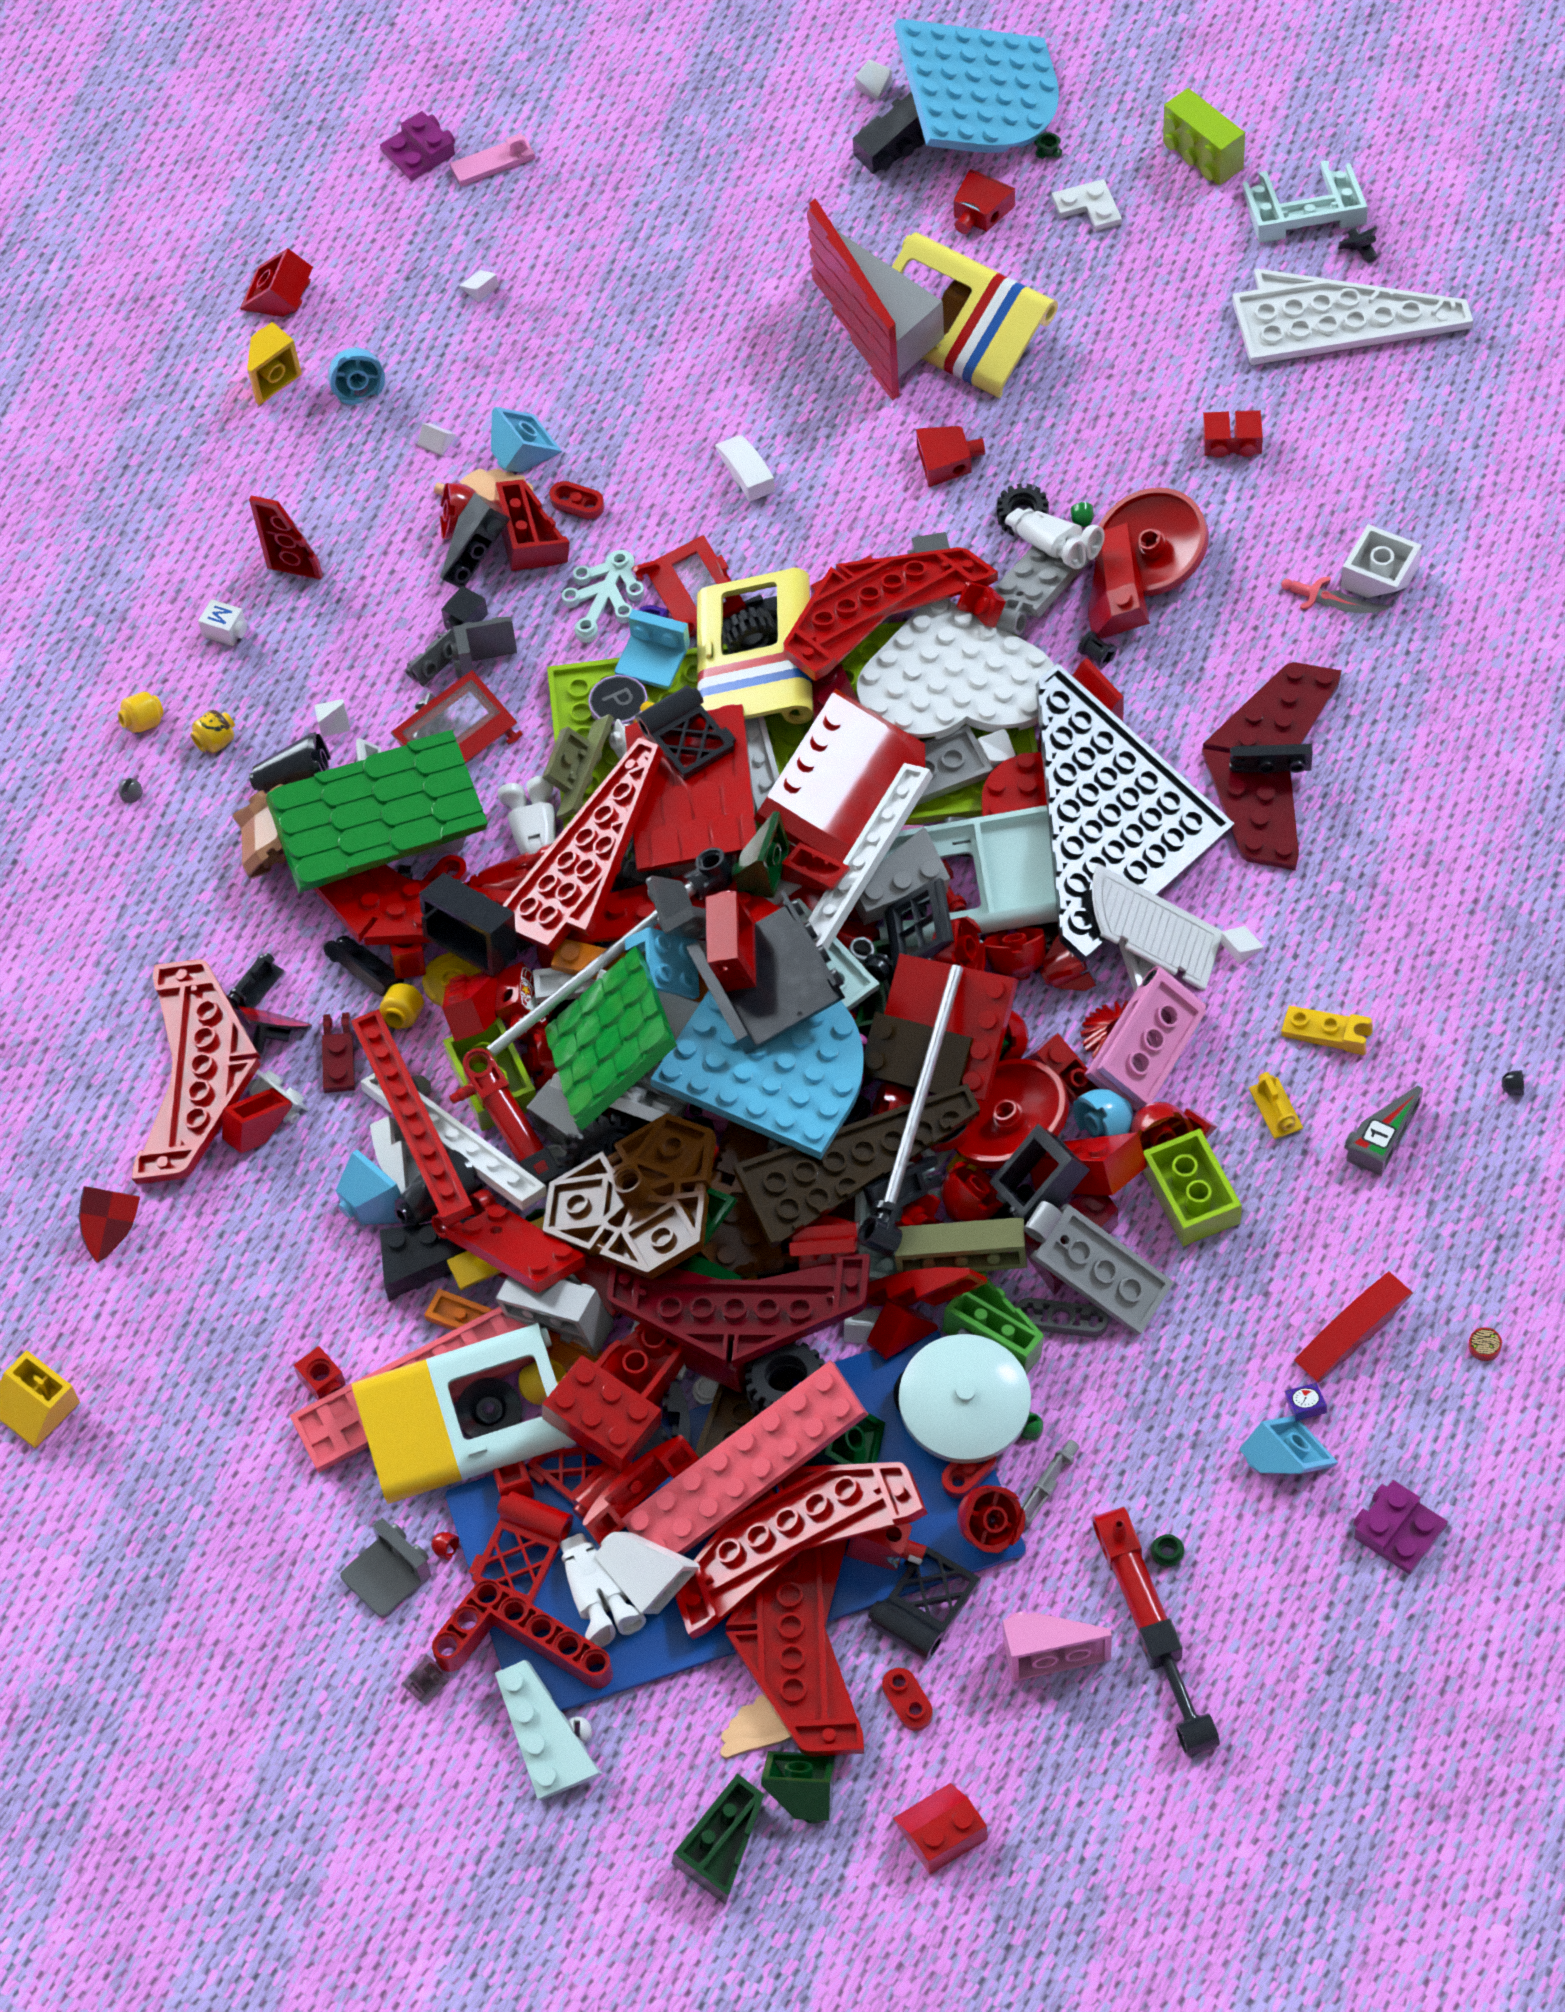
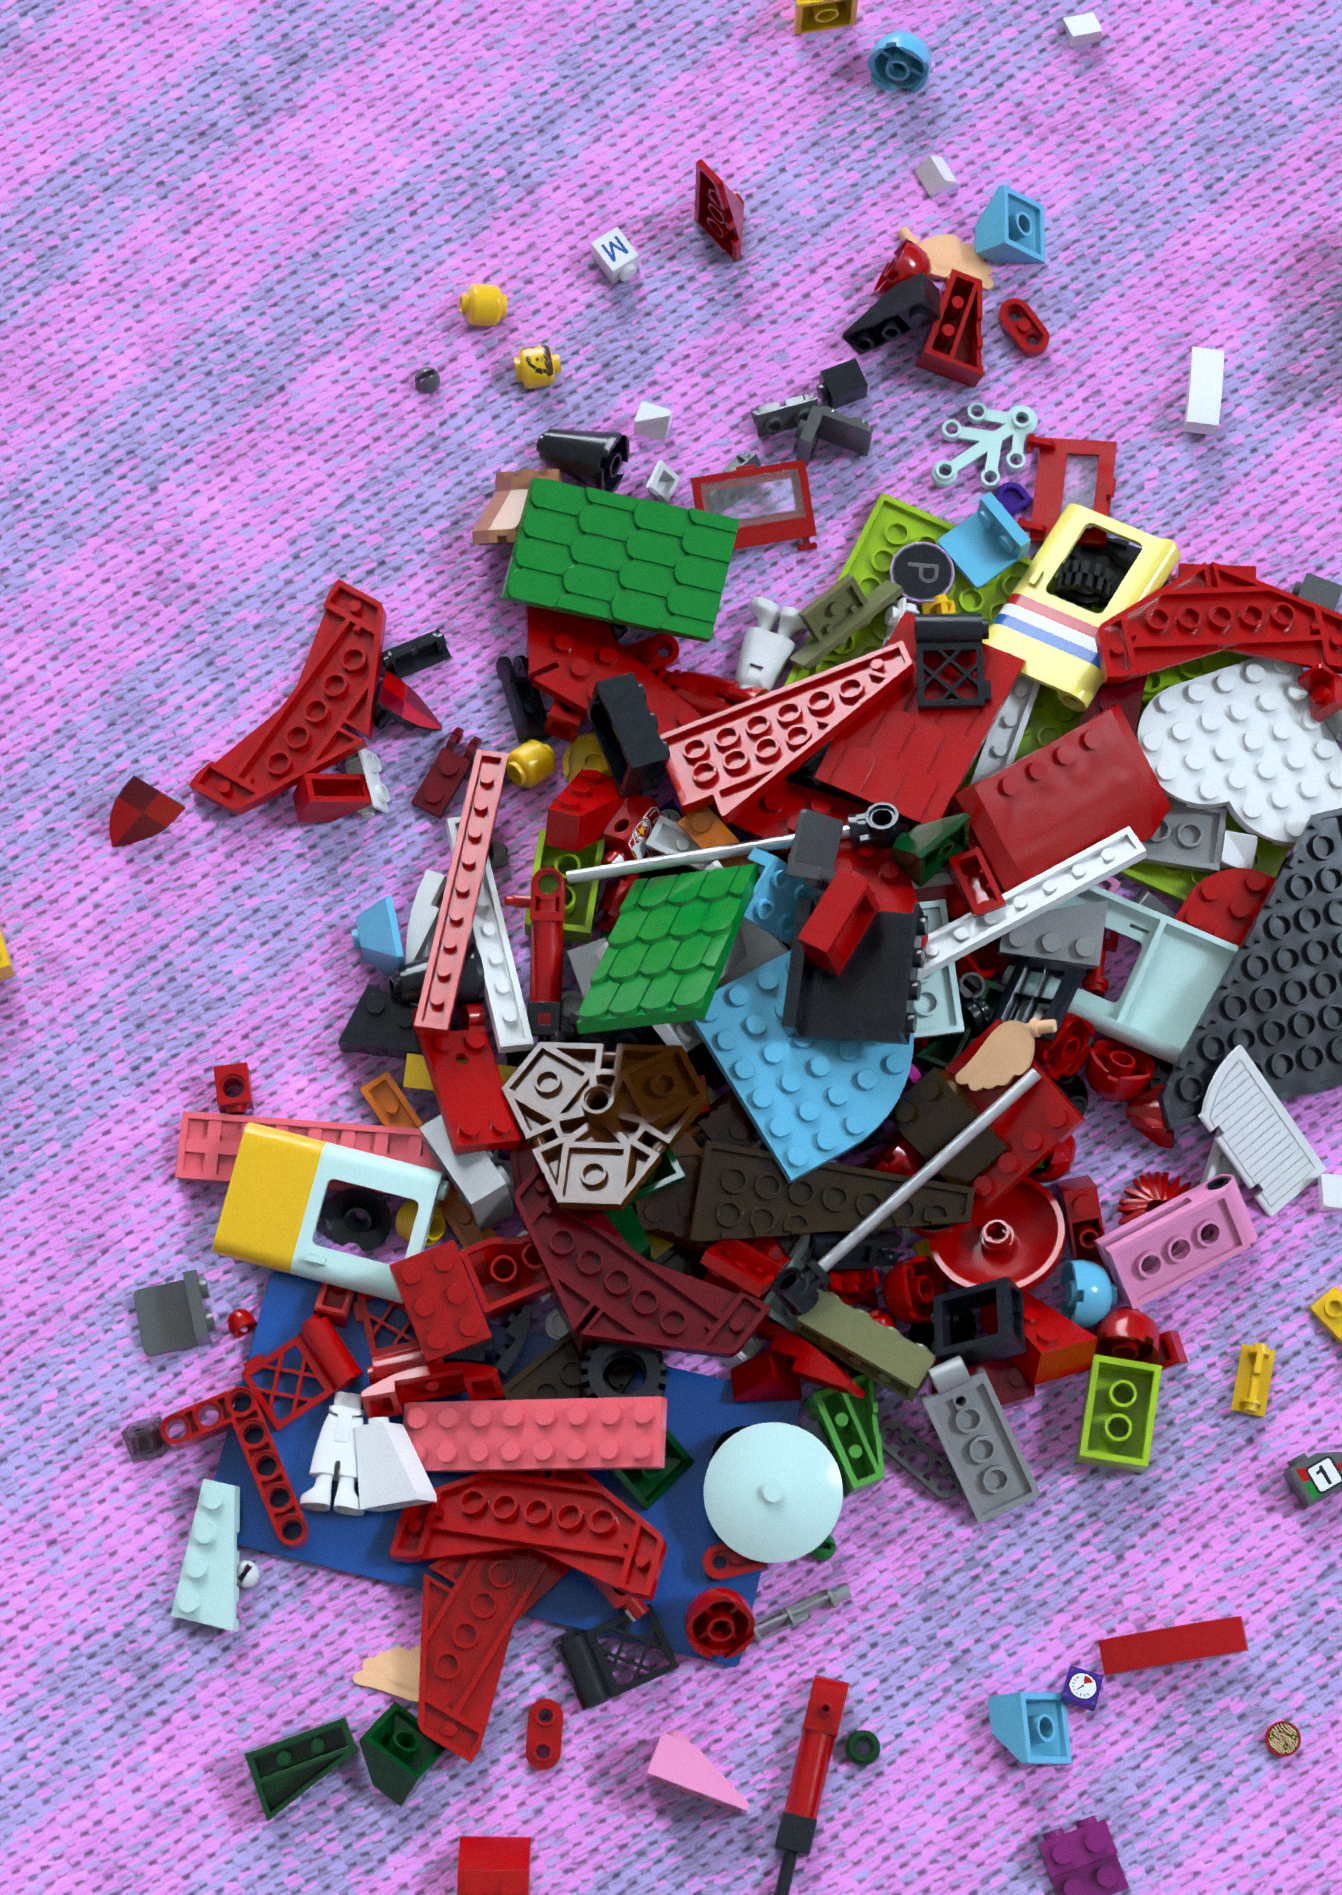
camera: 25 degrees right, 15 degrees up
(922, 973) = (1004, 1054): none -> light nougat animal

